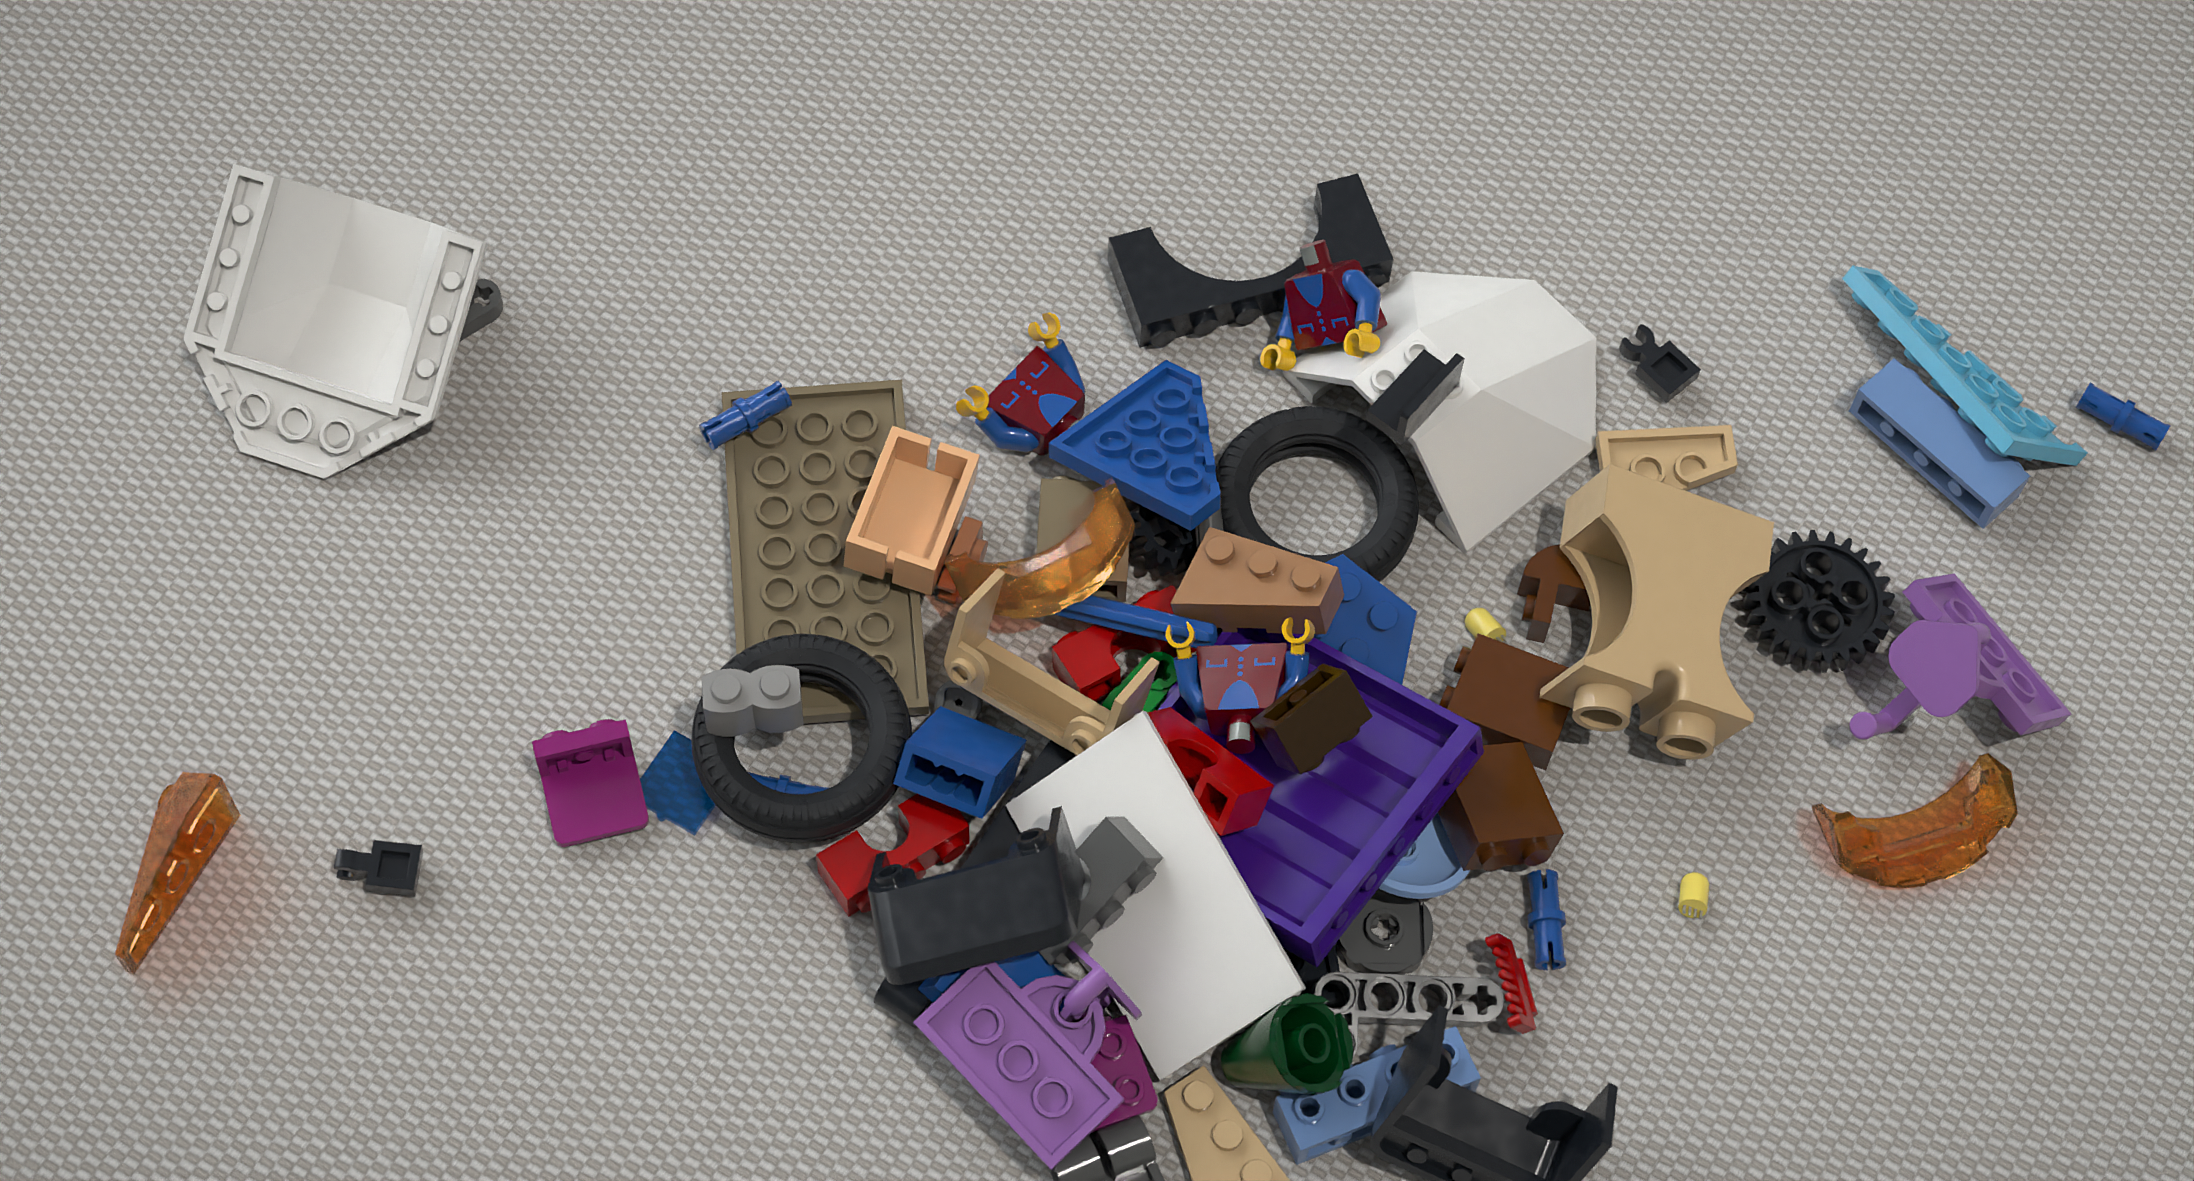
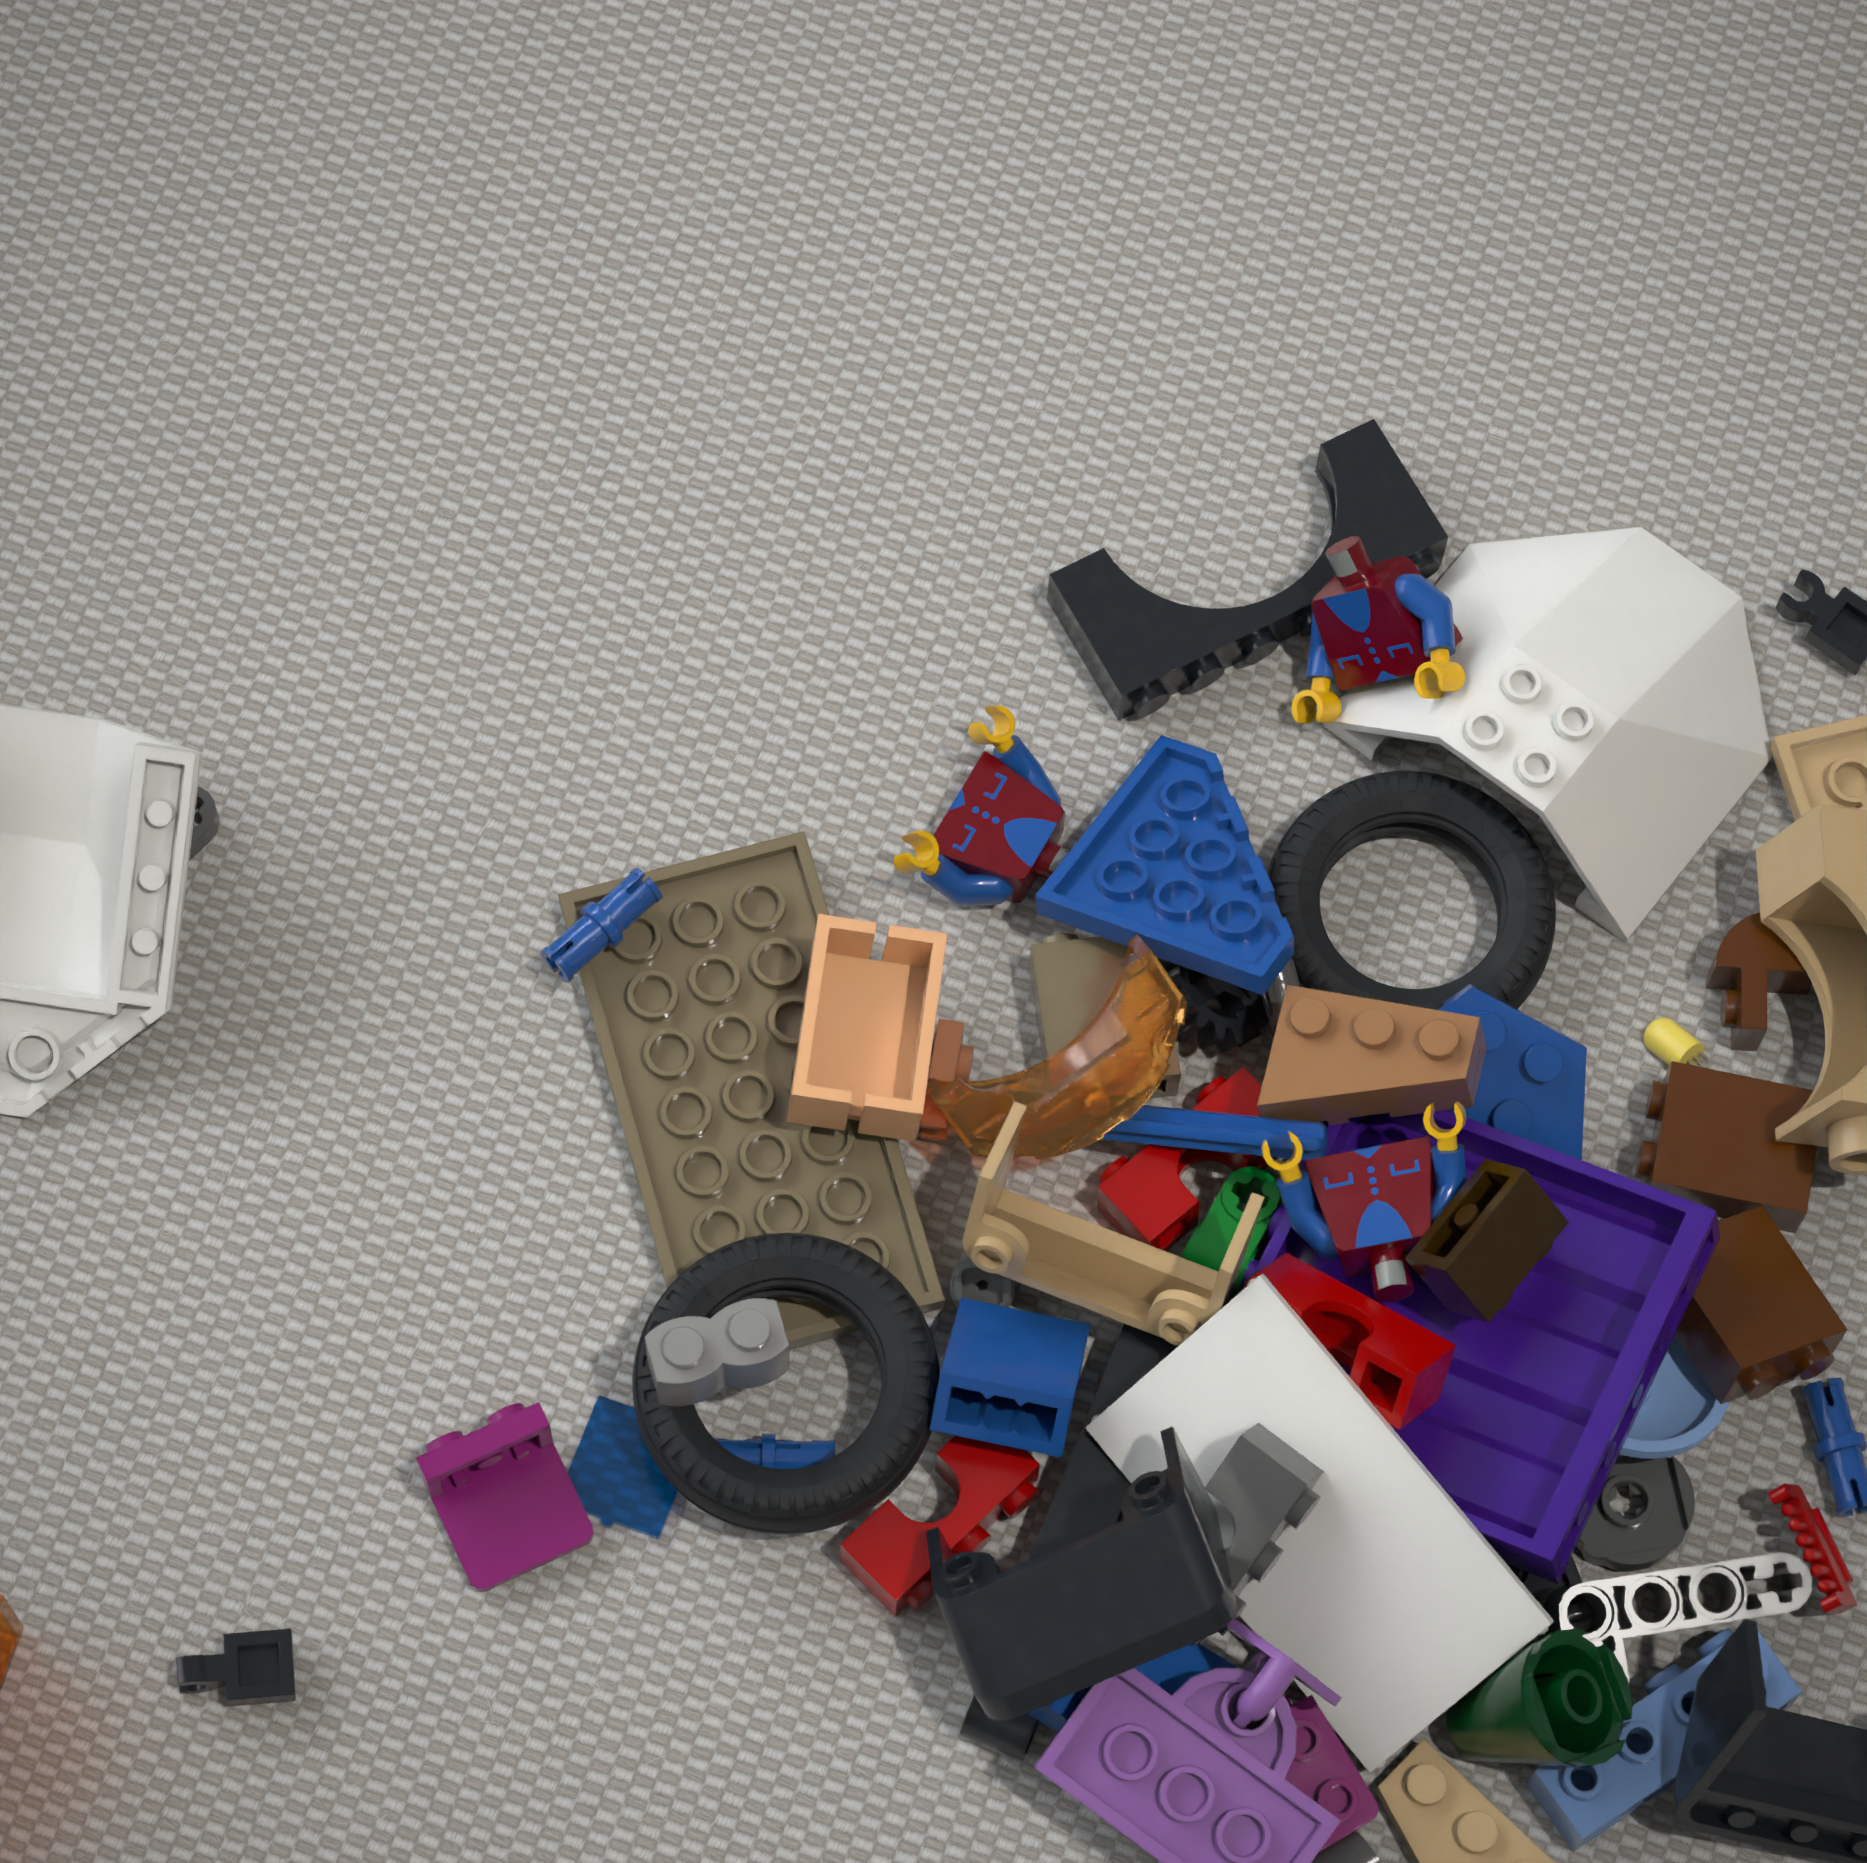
camera: 10 degrees left, 5 degrees up
(1415, 395) = (1532, 748): black panel -> none

